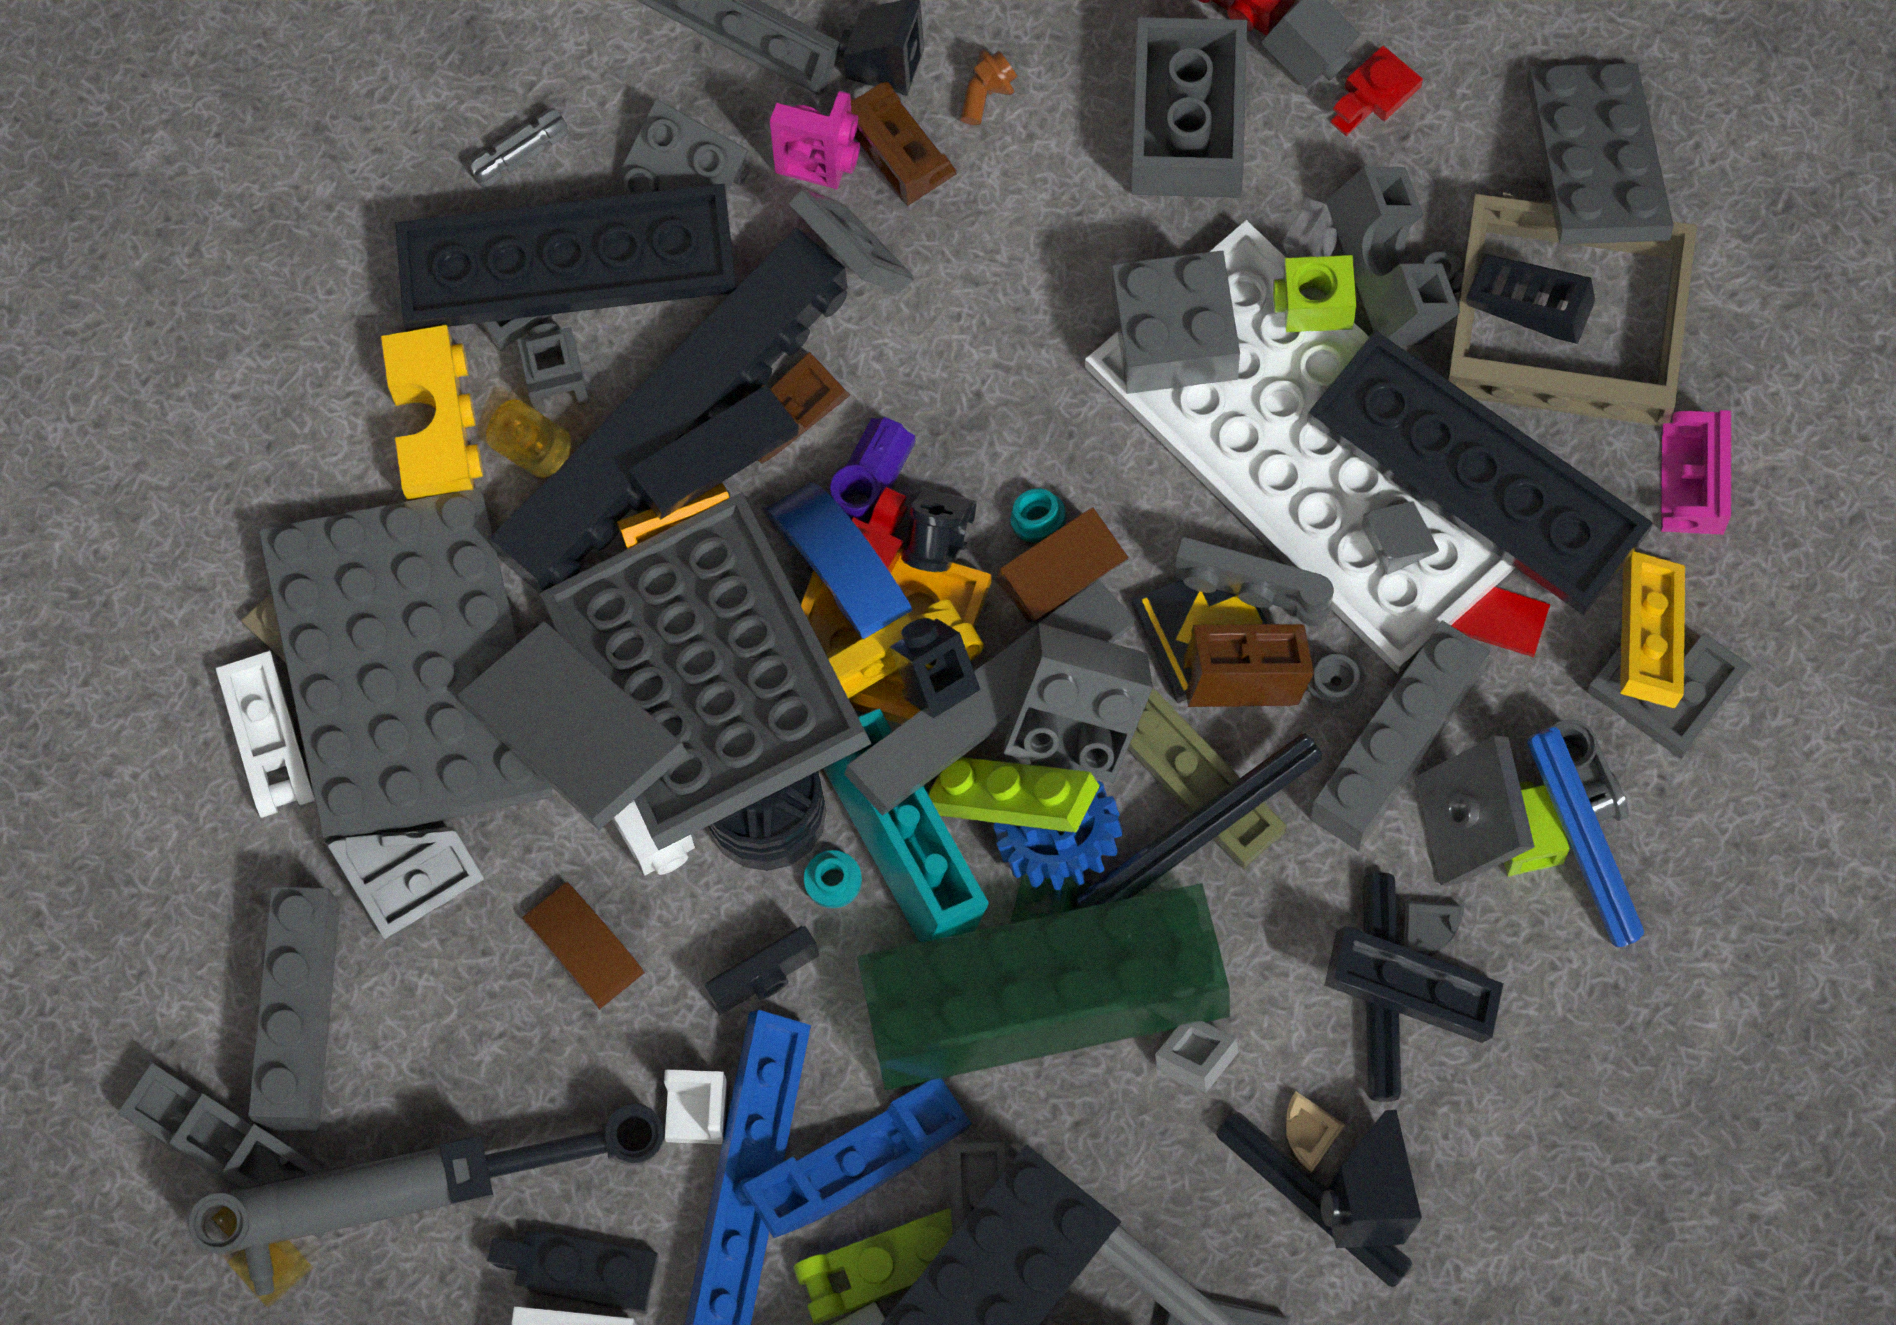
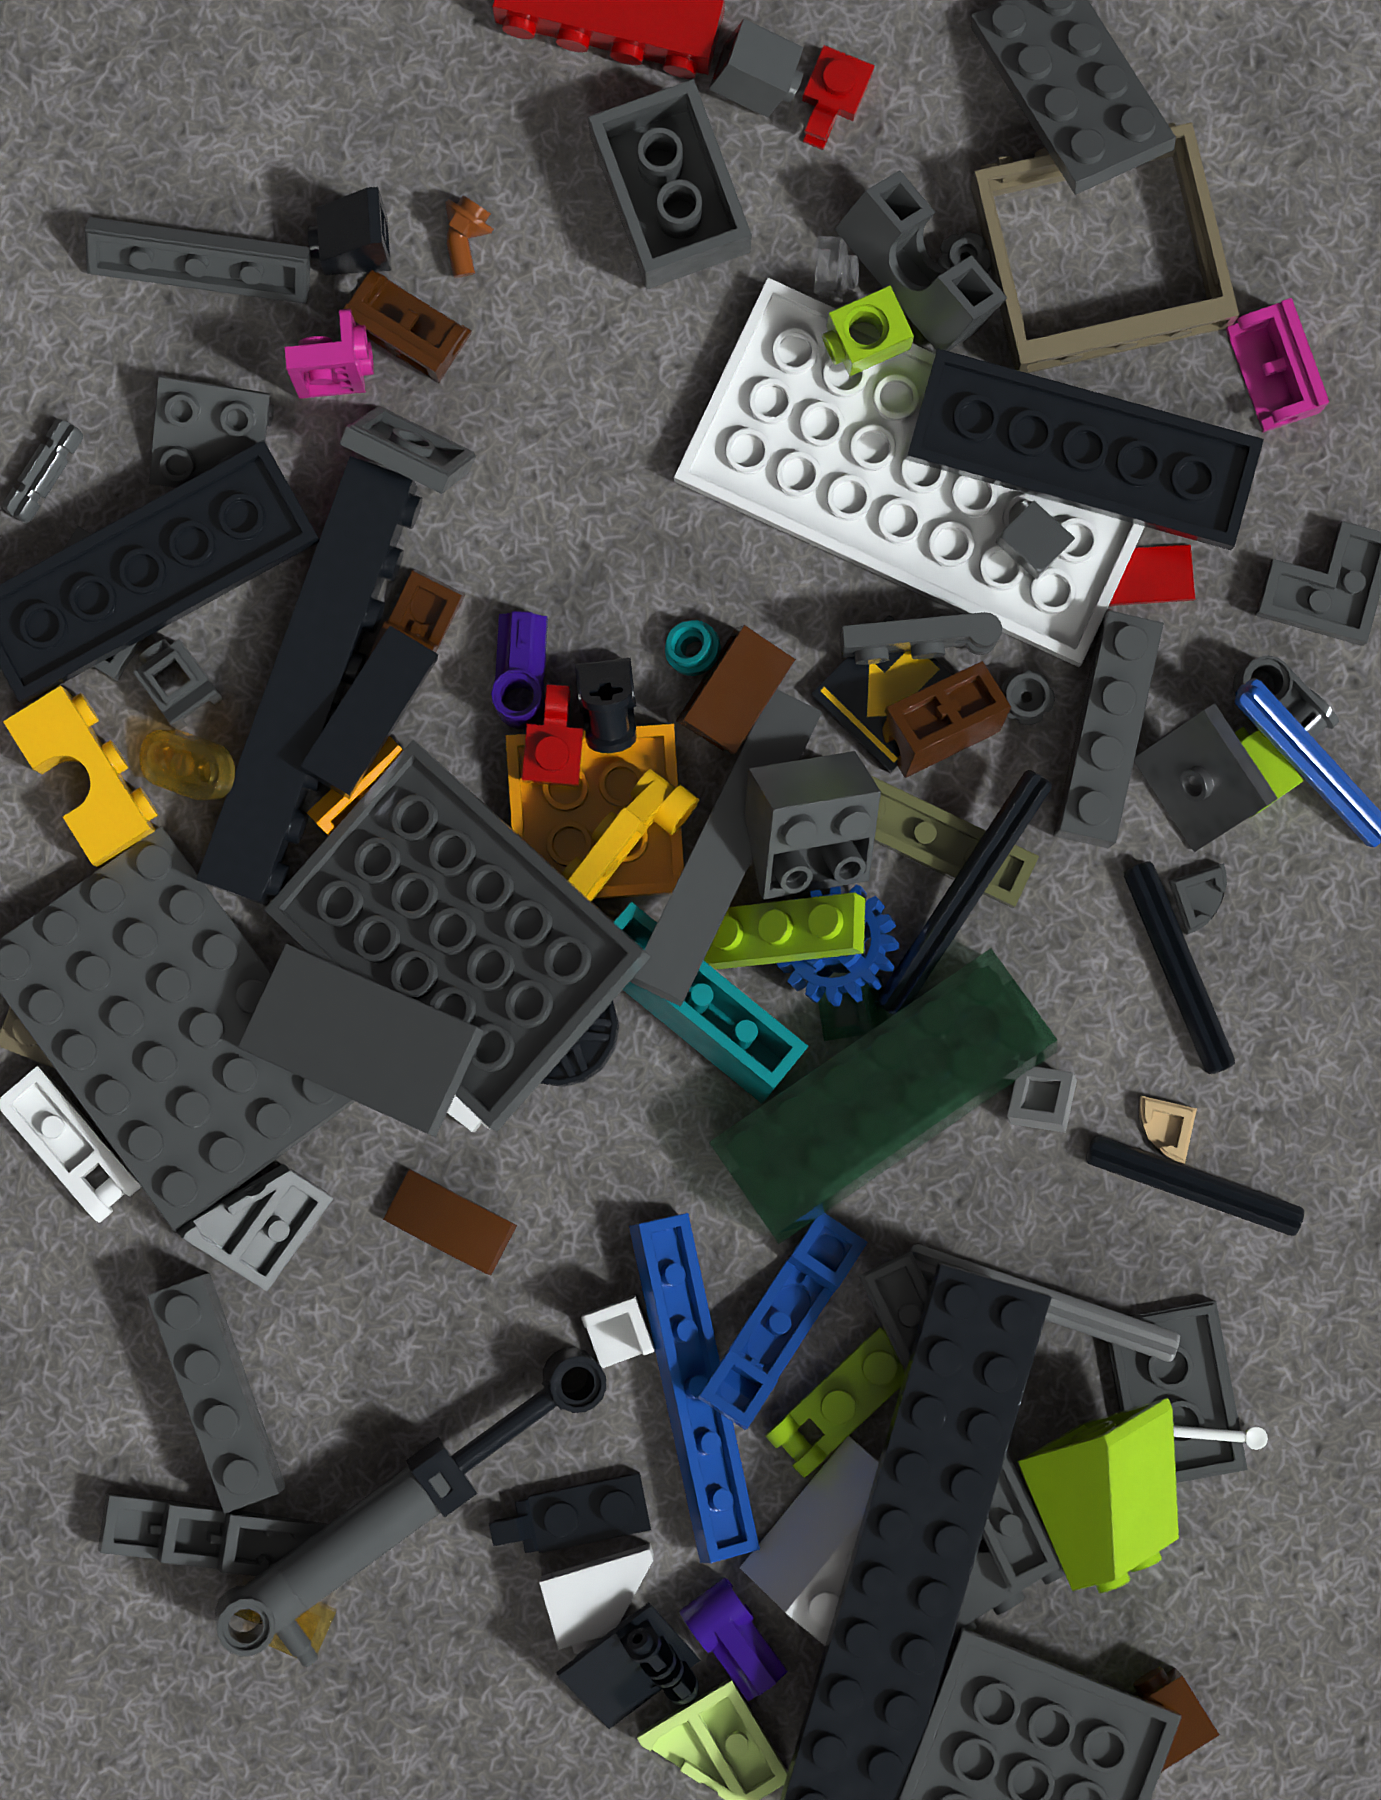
camera: 30 degrees left, 15 degrees up
(763, 971) = (625, 1184): black plate -> none
(837, 895) = (646, 1087): teal plate -> none
(840, 558) = (531, 770): blue slope -> none
(933, 666) = (658, 841): black brick -> none
(1175, 322) = (748, 413): dark grey brick -> none
(1373, 1191) = (1248, 1162): black slope -> none
(1414, 984) = (1212, 961): black plate -> none
(1547, 319) = (1068, 277): black slope -> none
(1653, 630) = (1299, 540): yellow plate -> none

